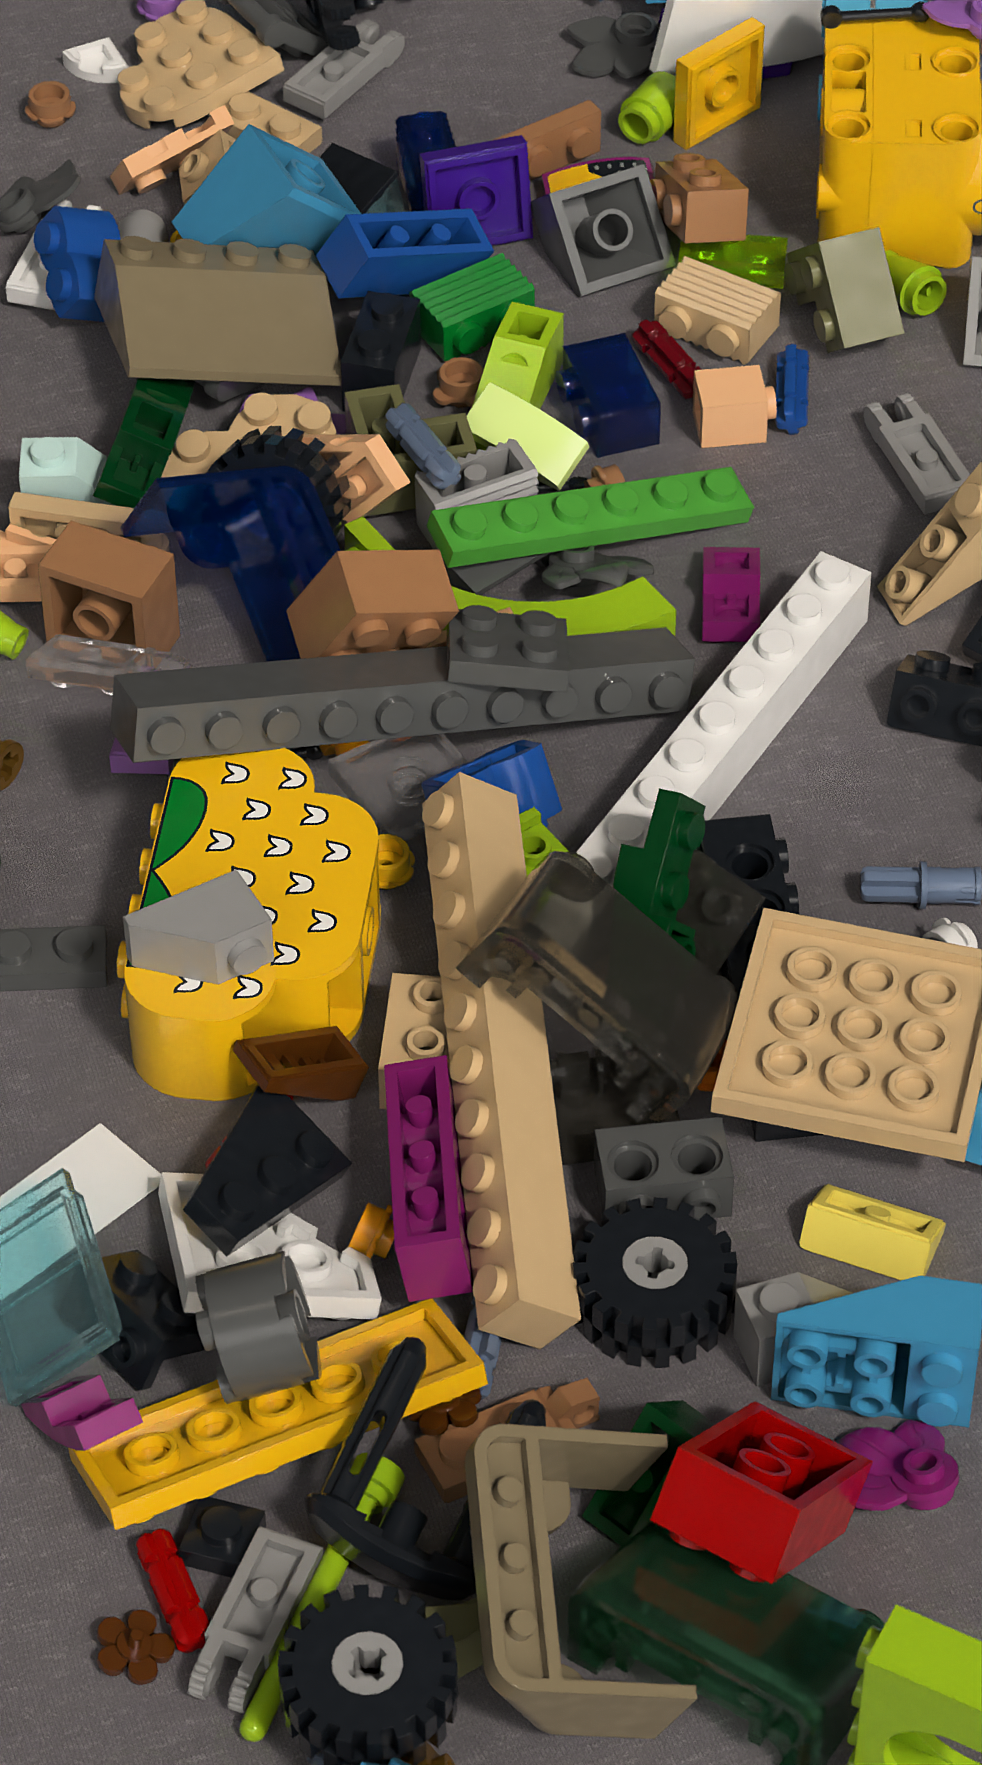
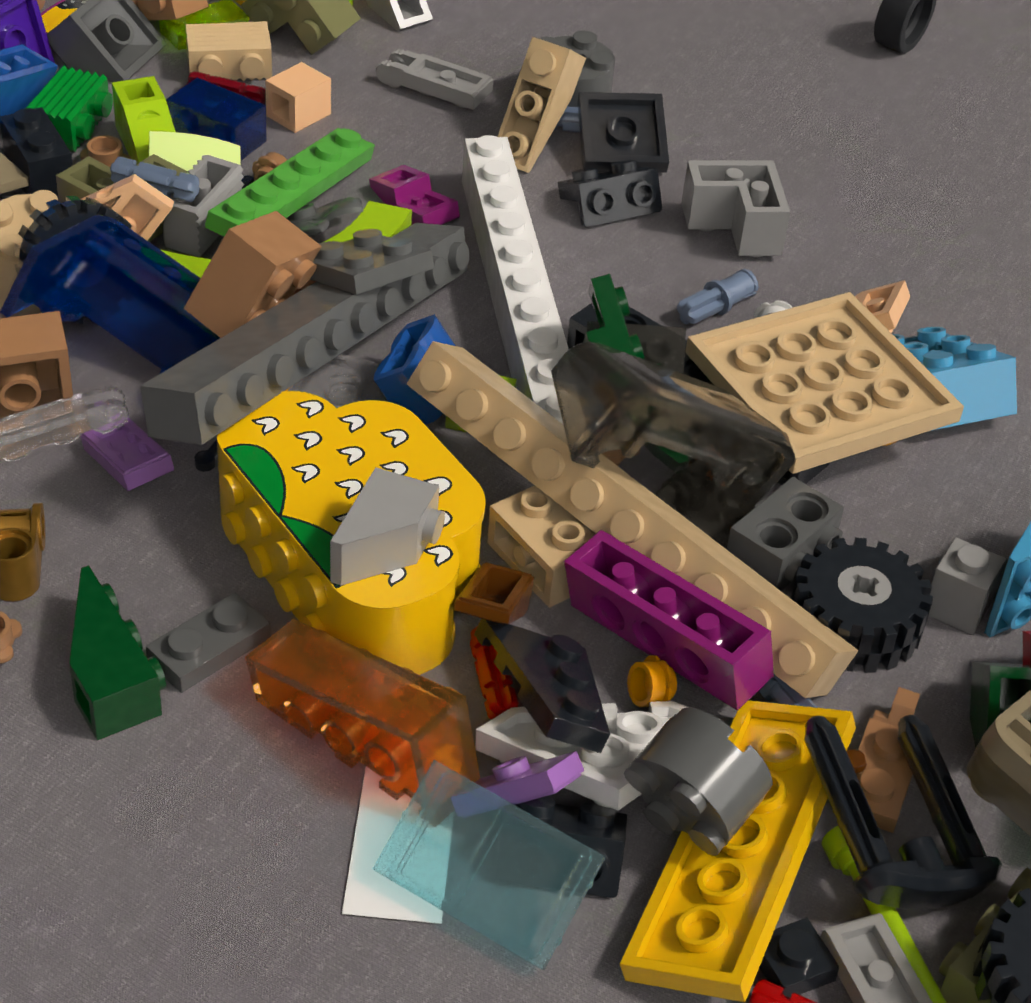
camera: 45 degrees left, 5 degrees down
(81, 1413) = (613, 940): magenta slope -> none
(87, 1096) = (363, 707): none -> clear orange wedge
(134, 1237) = (522, 782): none -> medium lavender plate
(792, 389) = (339, 88): blue axle -> none
(870, 1233) = (927, 504): light yellow slope -> none

